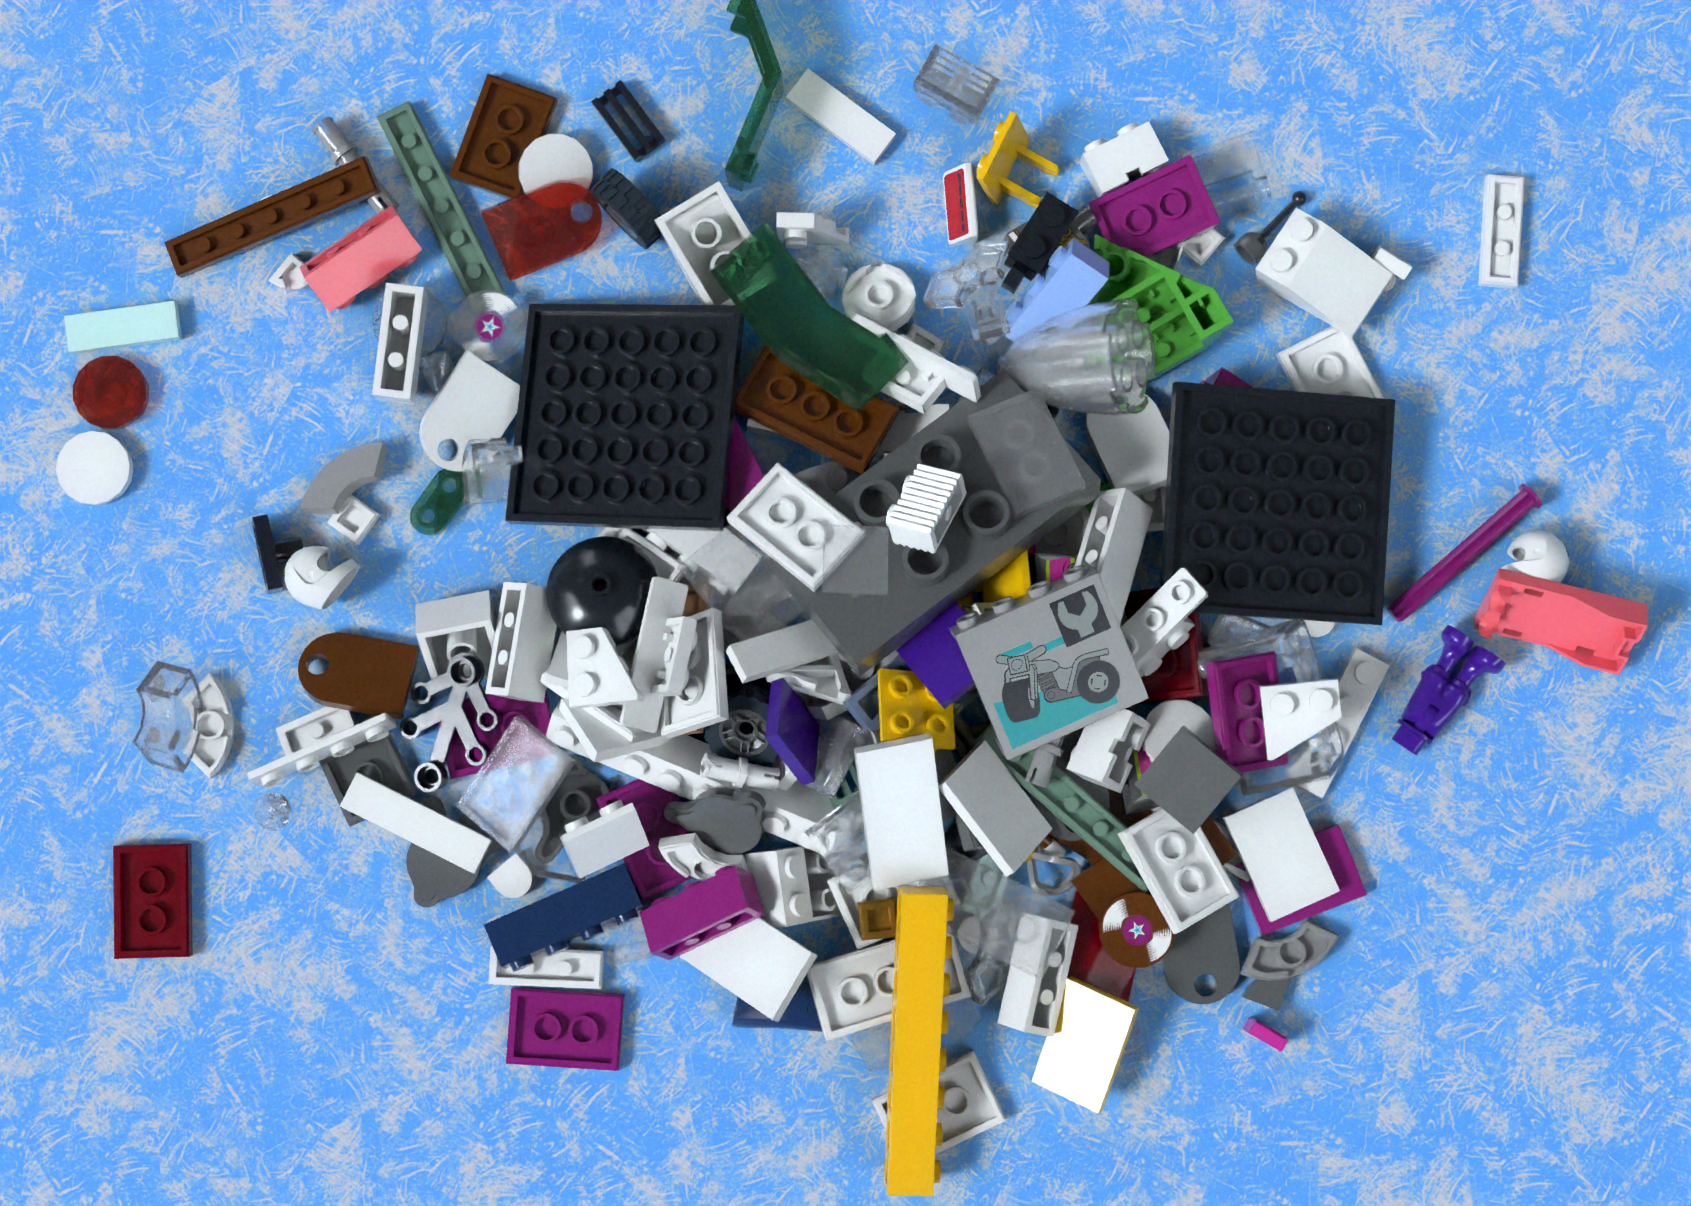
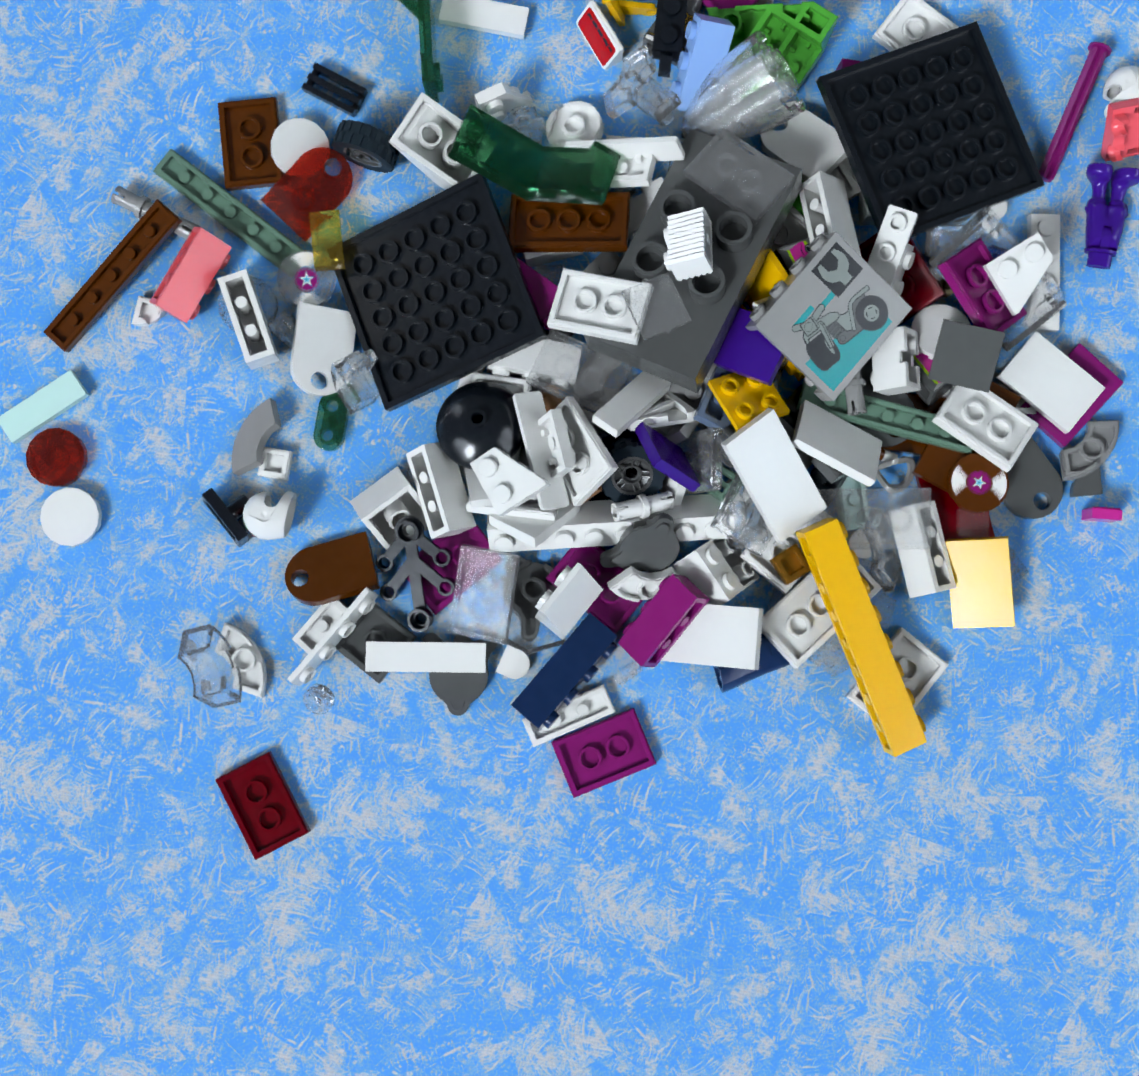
camera: 25 degrees left, 0 degrees up
(533, 294) = (327, 240): none -> clear yellow tile

